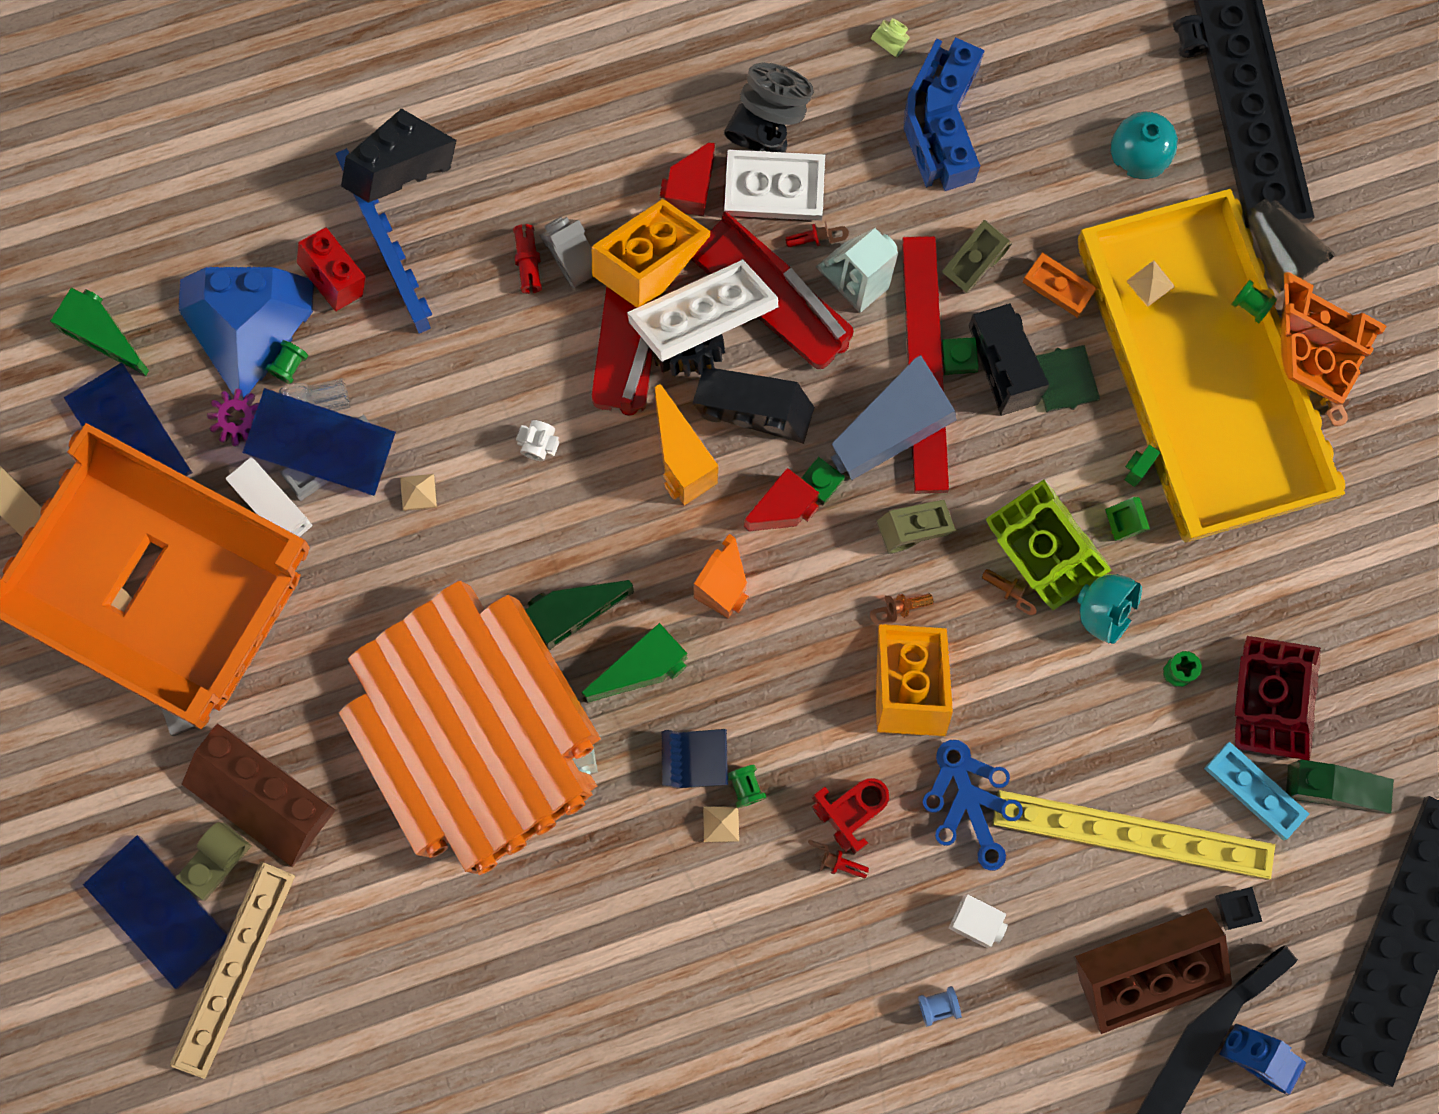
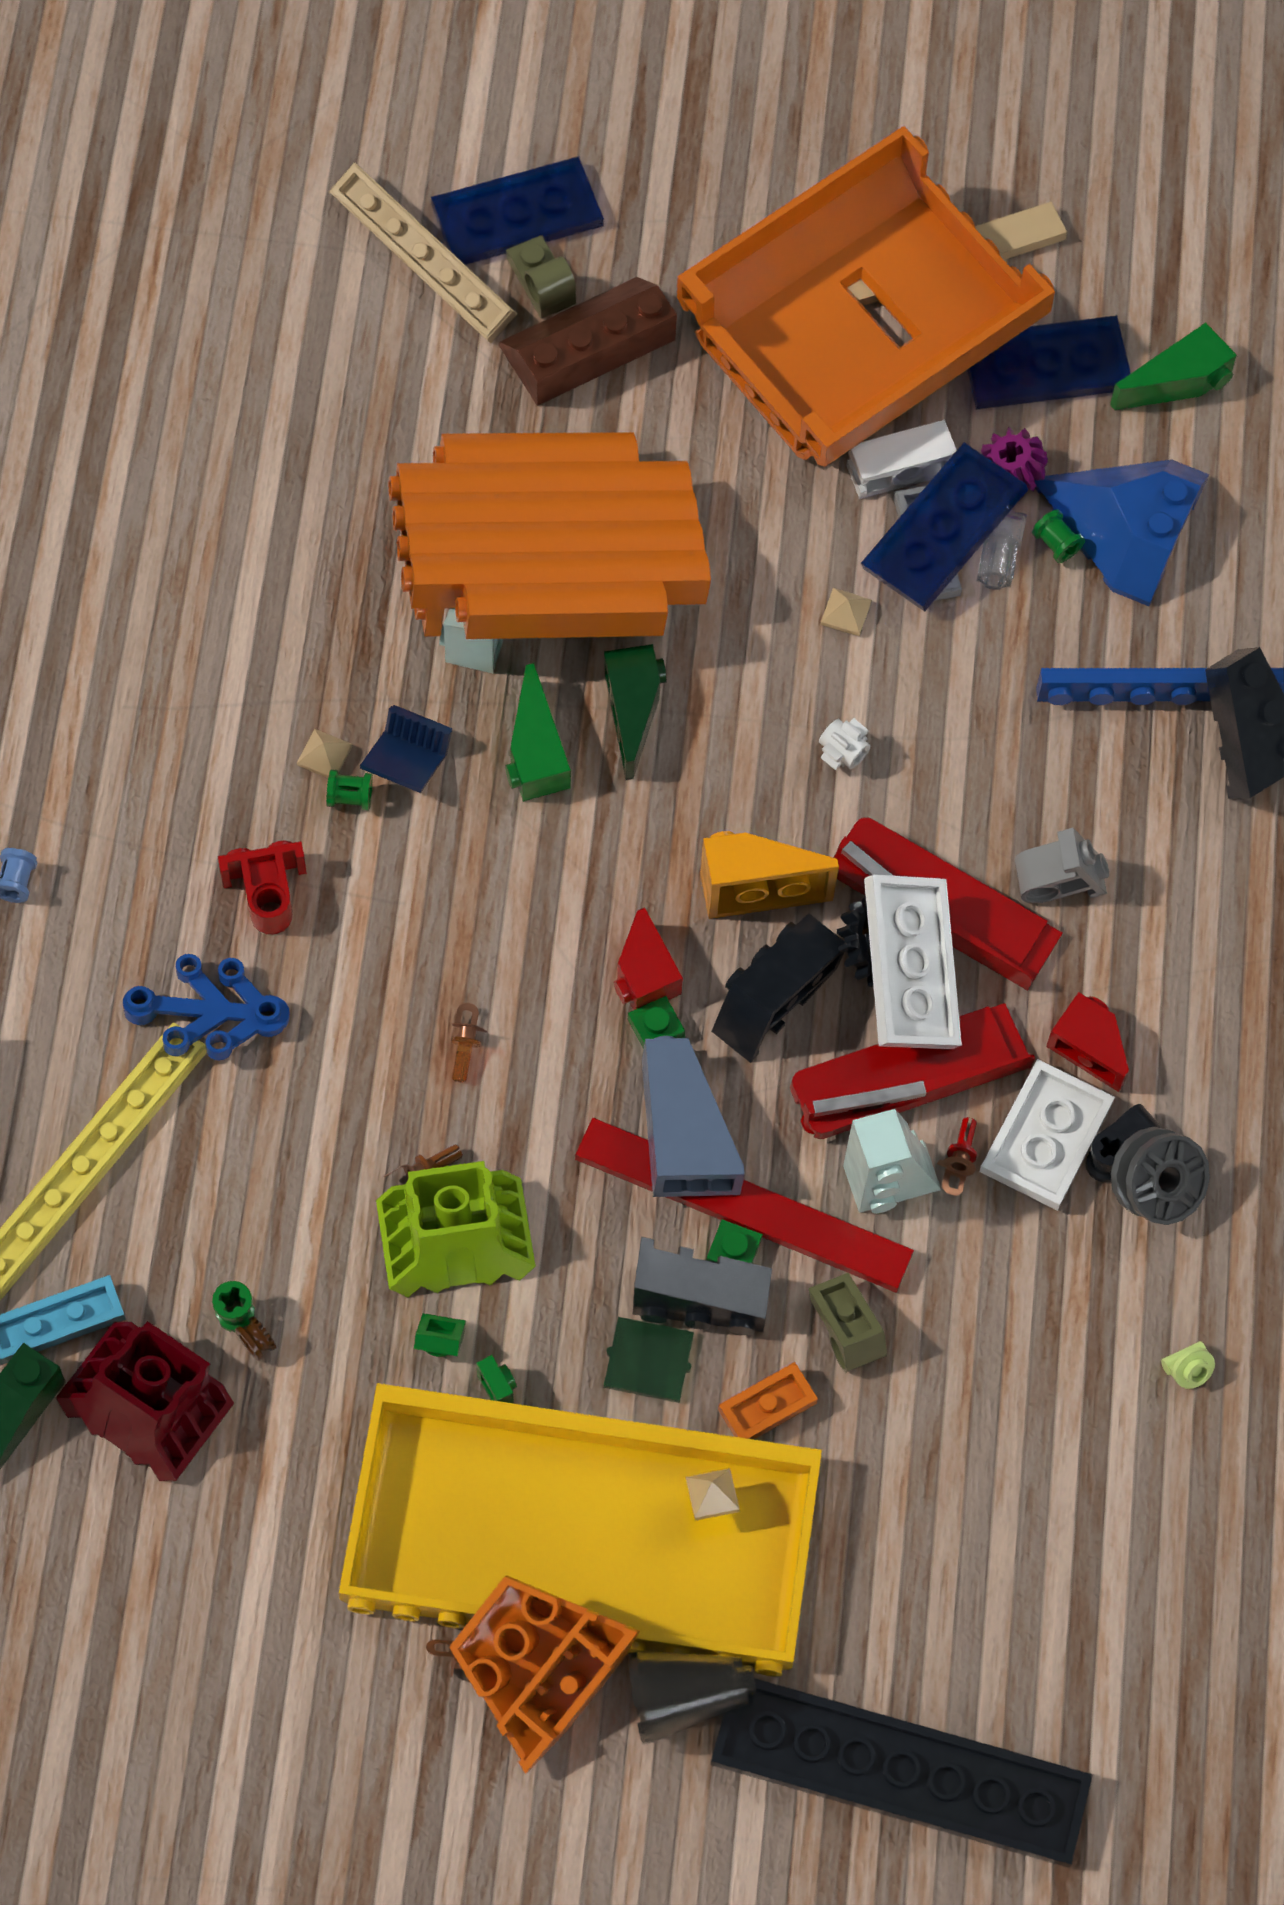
camera: 115 degrees right, 10 degrees down
(330, 269) = (1148, 615): red brick -> none
(527, 258) = (1053, 821): red pin -> none
(647, 252) = (1014, 939): light orange slope -> none
(723, 580) = (587, 860): orange slope -> none
(836, 862) = (220, 846): red piece -> none
(913, 680) = (376, 1010): light orange slope -> none
(914, 524) = (549, 1095): olive plate -> none
(944, 130) = (1061, 1357): blue brick -> none
(979, 922) = (78, 953): white brick -> none
(1107, 606) = (345, 1256): teal cylinder -> none
(1144, 144) = (907, 1604): teal cylinder -> none
(1190, 36) = (1047, 1735): black bush -> none
(1197, 641) = (254, 1338): none -> reddish brown bush
(1254, 301) = (628, 1598): green bush -> none

